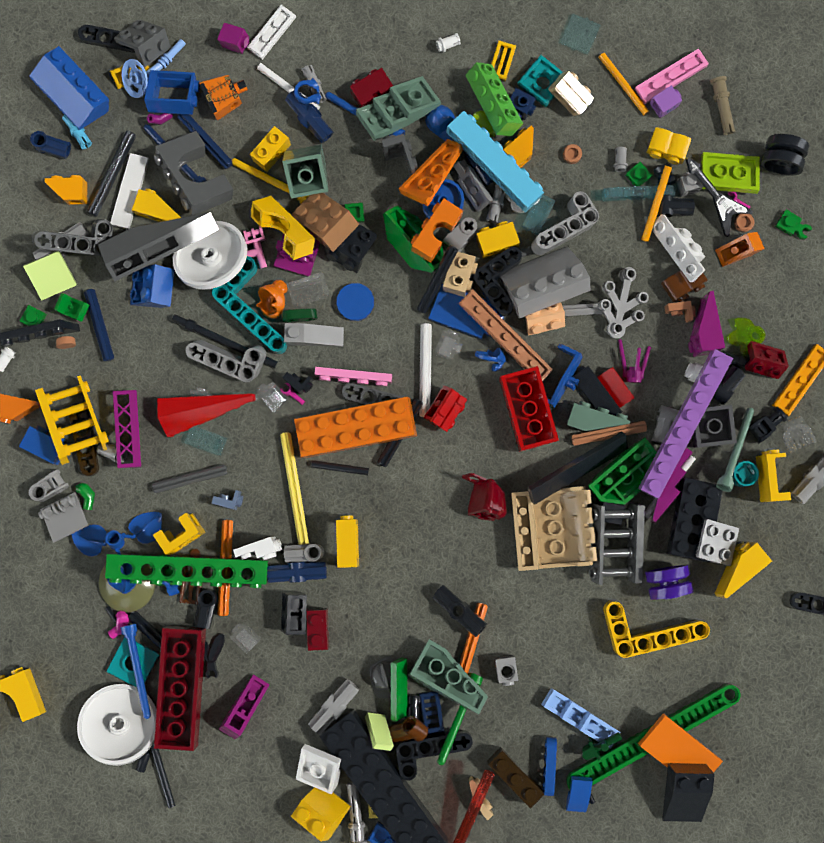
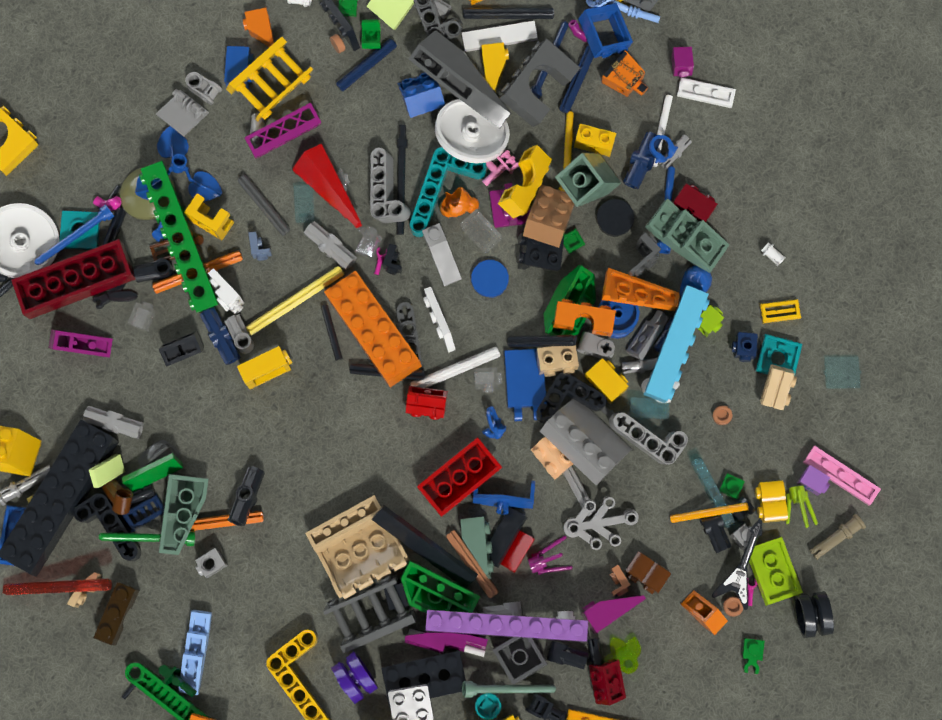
camera: 65 degrees right, 5 degrees down
(77, 438) = (257, 93): dark brown beam -> none
(88, 495) = (211, 123): green arm -> none
(257, 432) = (330, 245): none -> light grey piece
(299, 315) = (453, 234): dark green beam -> none
(317, 629) = (176, 377): dark red brick -> none
(318, 769) = (51, 432): white plate -> none
(350, 165) = (615, 217): none -> black tile
(361, 377) = (416, 299): bright pink plate -> none
(373, 363) = (437, 317): none -> white wing
(486, 499) = (358, 477): dark red piece -> none
(494, 99) = (735, 318): bright green brick -> none
(503, 333) = (518, 426): nougat tile -> none
(521, 147) = (702, 364): light orange slope -> none
(550, 769) = (136, 642): blue beam -> none
(579, 794) = (124, 679): blue slope -> none
(620, 159) = (738, 462): light grey pin -> none
(624, 84) = (813, 434): light orange bar -> none
(673, 120) = (800, 496): none -> lime plant
(680, 247) = (678, 554): white bracket -> none

